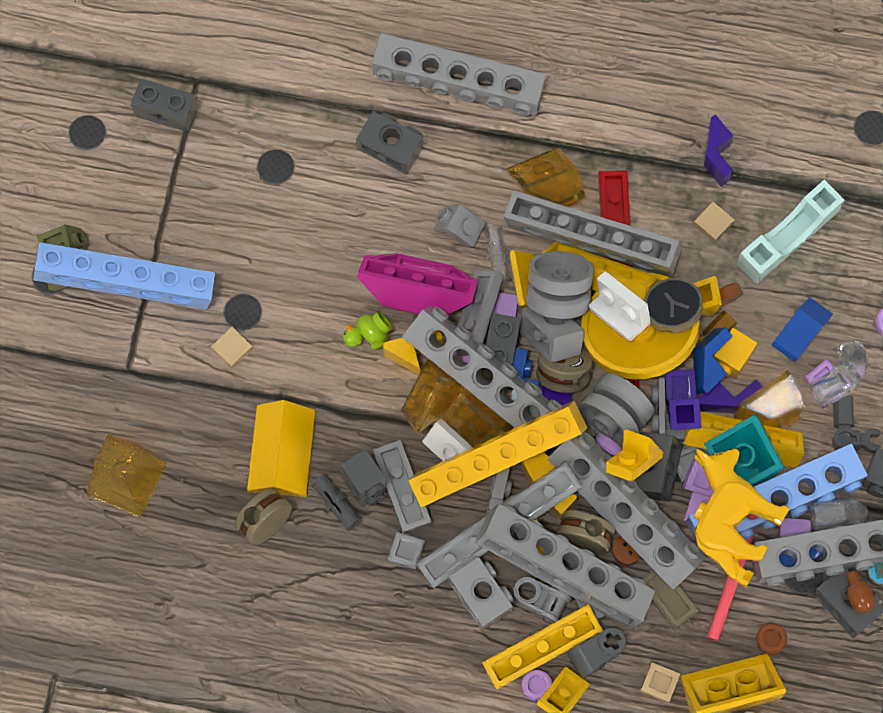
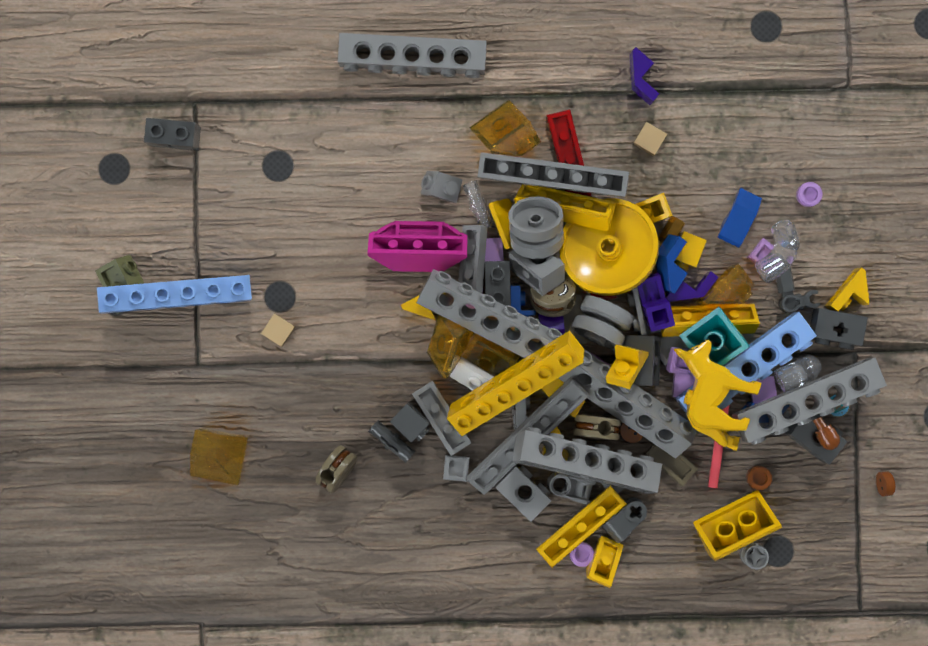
camera: 10 degrees left, 15 degrees up
(281, 448) = (338, 407): yellow slope -> none
(371, 327) = (388, 292): lime animal -> none
(398, 155) = (353, 126): dark grey brick -> none
(607, 445) = (600, 350): lavender tile -> none
(620, 307) = (590, 239): white bracket -> none
(660, 682) = (678, 531): tan tile -> none
(674, 305) = (633, 226): black tile -> none
(730, 293) = (675, 199): dark orange tile -> none
(804, 221) = (716, 136): light aqua arch -> none

